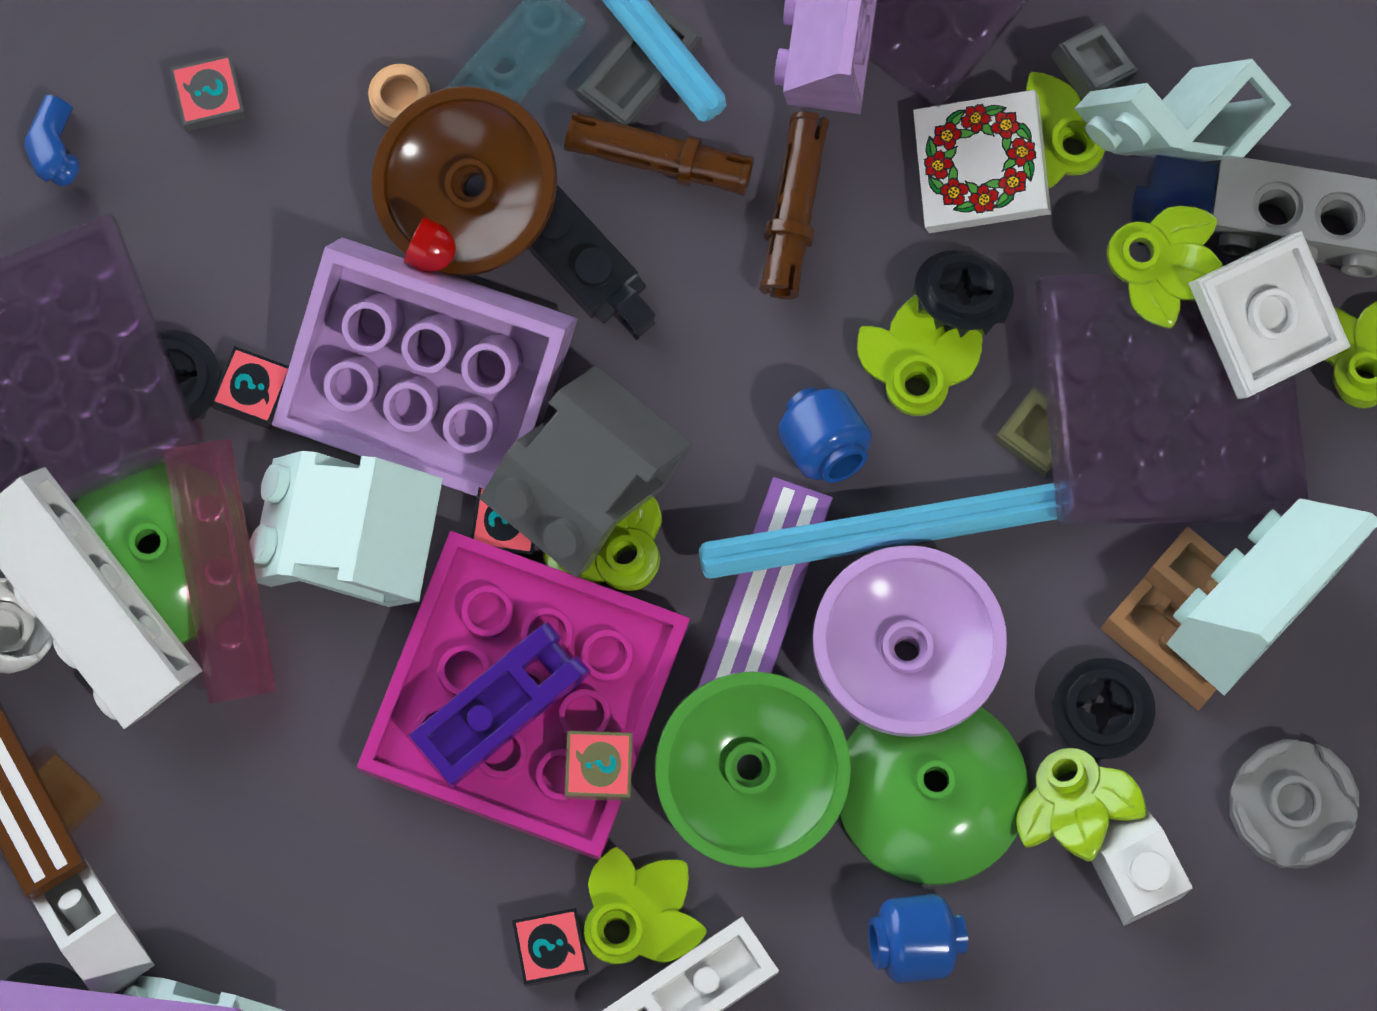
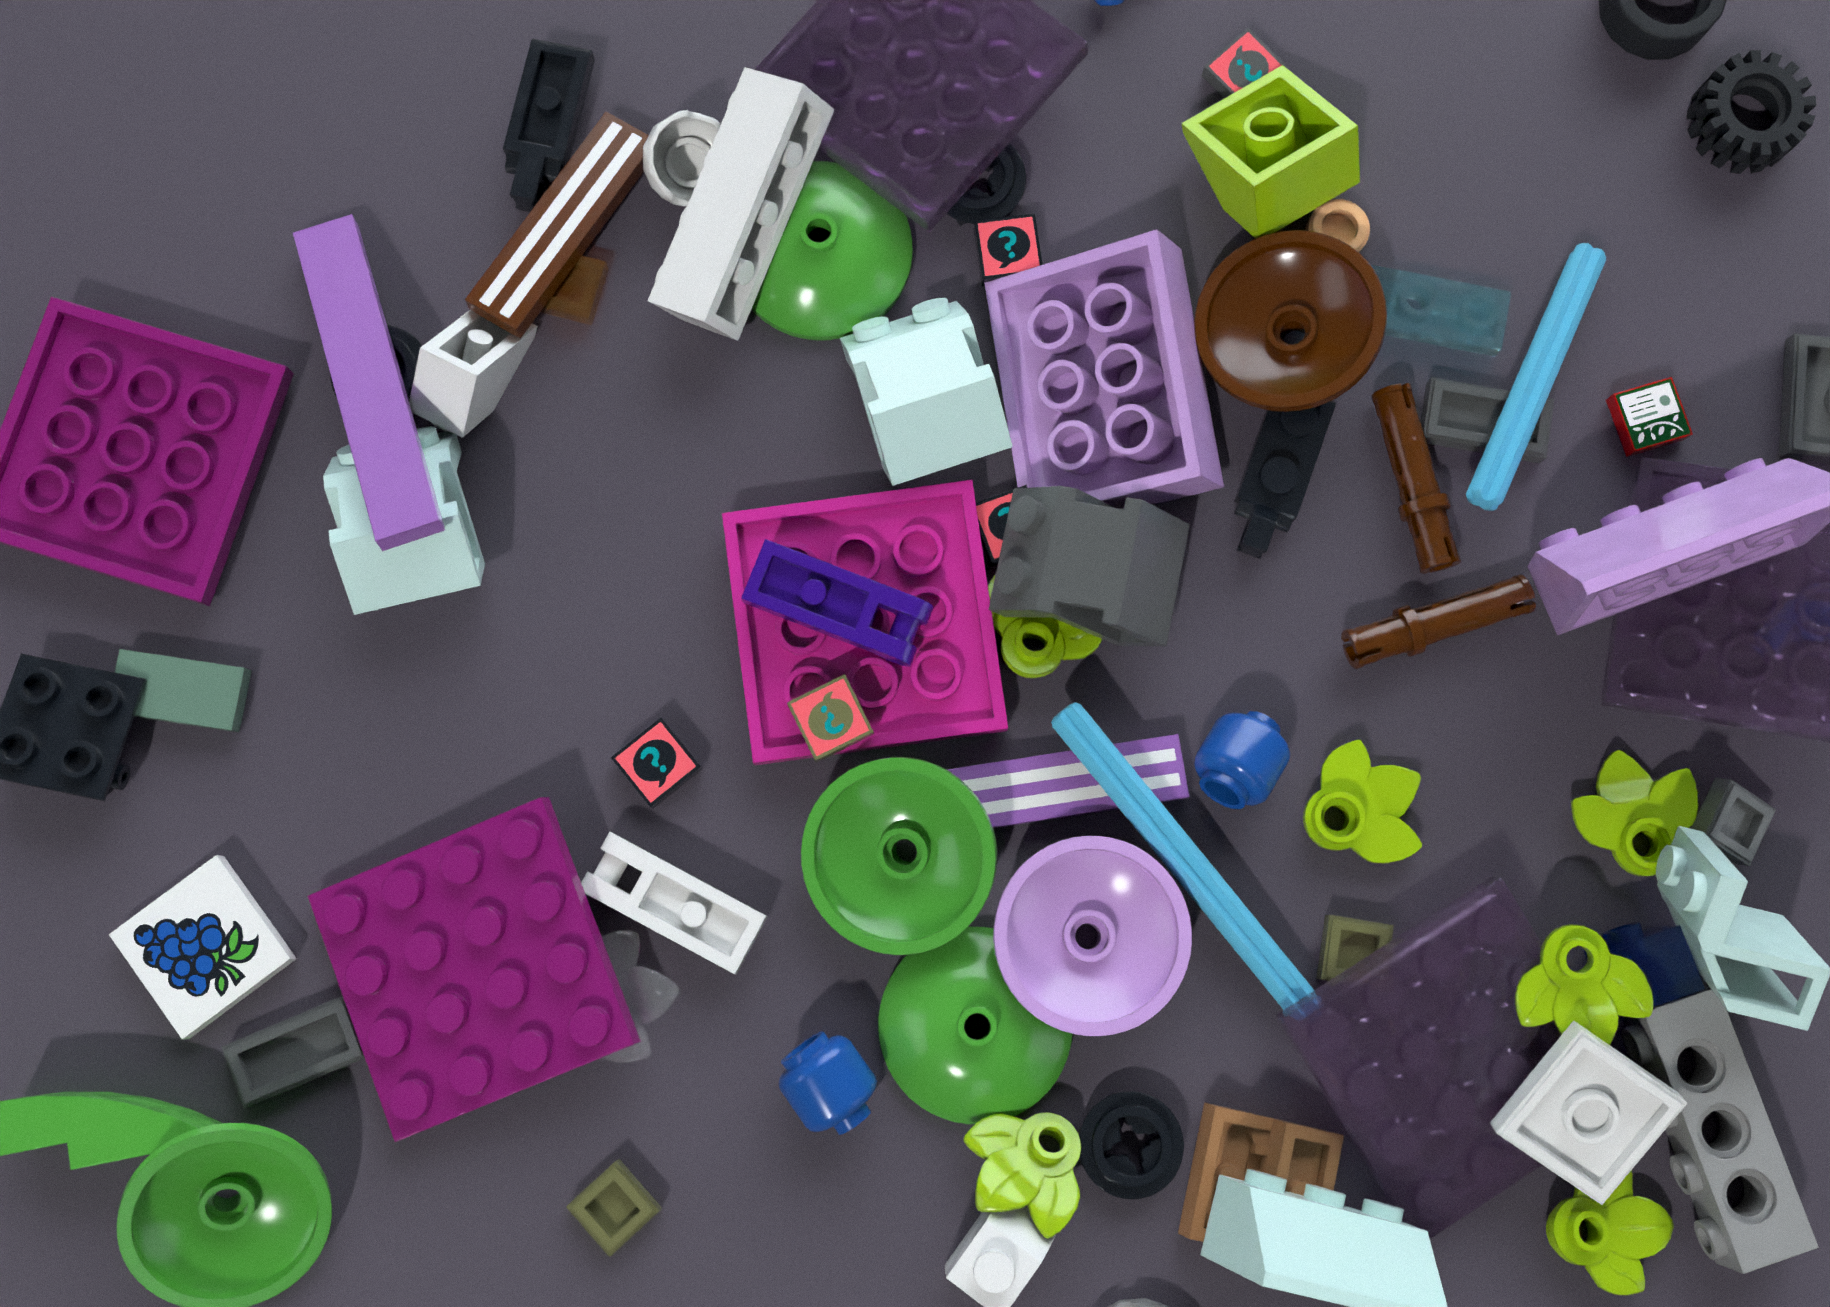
camera: 65 degrees right, 5 degrees up
(219, 570) = (829, 305): clear pink tile -> none
(300, 109) = (1274, 151): none -> lime slope
(430, 247) = (1212, 322): red hinge -> none
(649, 906) = (739, 824): lime plate -> none
(982, 161) = (1578, 768): tile -> none
(985, 284) = (1463, 833): black gear -> none

